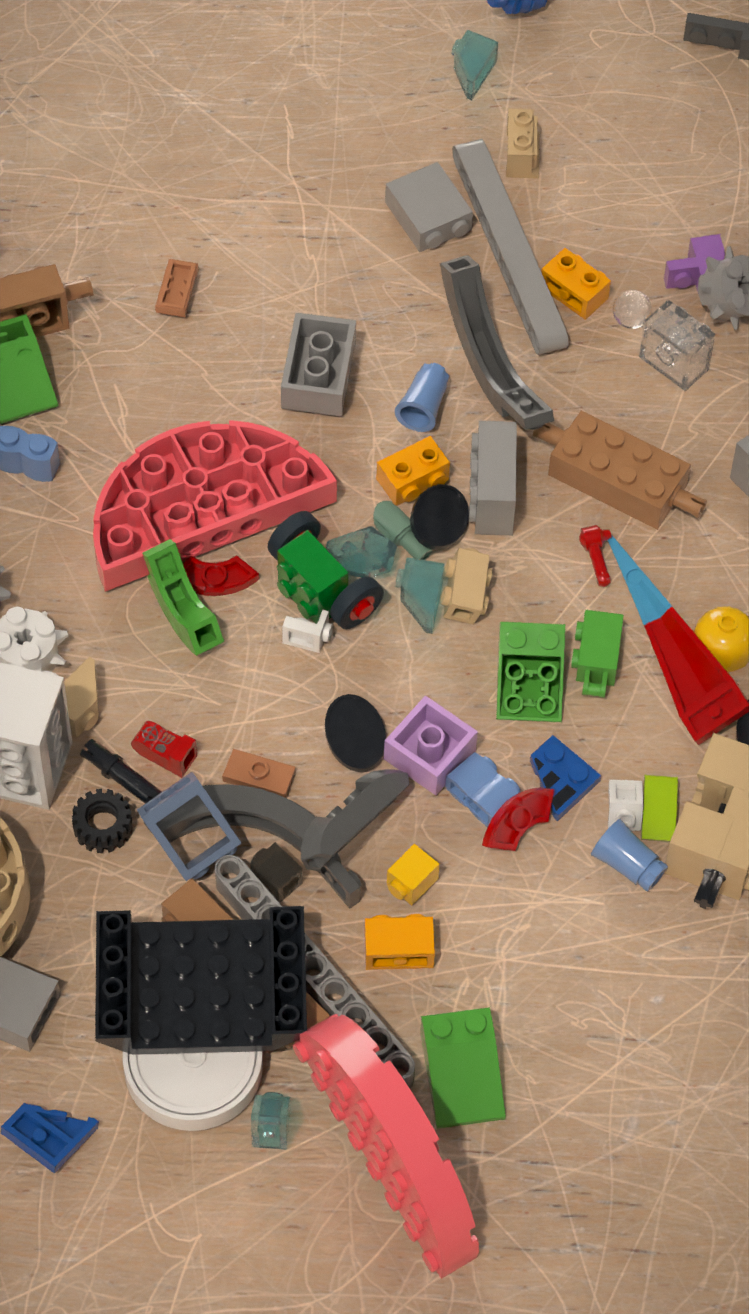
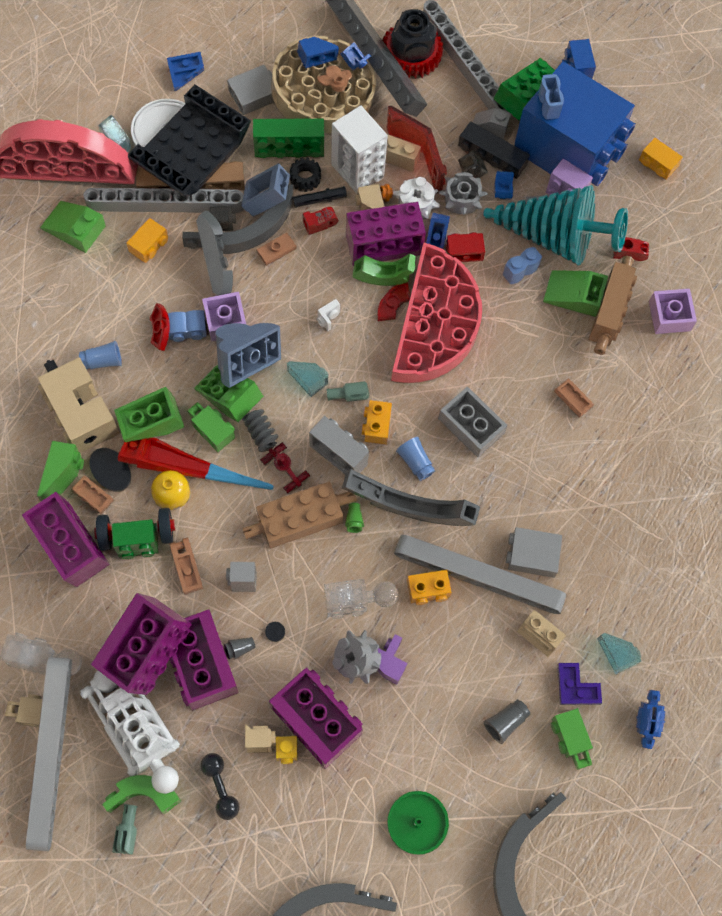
camera: 125 degrees right, 10 degrees up
(53, 539) = (466, 246): none -> red brick
(57, 586) = (438, 230): none -> blue slope
(64, 868) = (288, 138): none -> green brick
(128, 631) = (385, 232): none -> magenta brick
(316, 578) = (351, 330): brick -> none
(355, 733) = (262, 298): black piece -> none
(363, 552) = (350, 364): clear light blue slope -> none
(412, 875) = (171, 265): yellow brick -> none
(439, 516) = (343, 410): black piece -> none
(466, 584) = (298, 398): tan brick -> none
(473, 669) = (246, 350): none -> sand blue brick
(549, 590) = (259, 430): none -> dark grey piece
(556, 81) = (574, 692): none -> dark purple plate
(565, 773) = (167, 366): blue wing -> none
(567, 410) = (354, 520): none -> bright green cone
(576, 521) = (283, 463): none -> dark red axle
(592, 540) = (272, 473): red piece -> none
(610, 53) = (572, 737): none -> bright green brick
(626, 803) = (129, 378): white bracket -> none
(655, 117) = (507, 721): none -> dark grey plant
(659, 724) = (149, 416): none -> bright green slope
(659, 808) = (113, 390): lime slope -> none

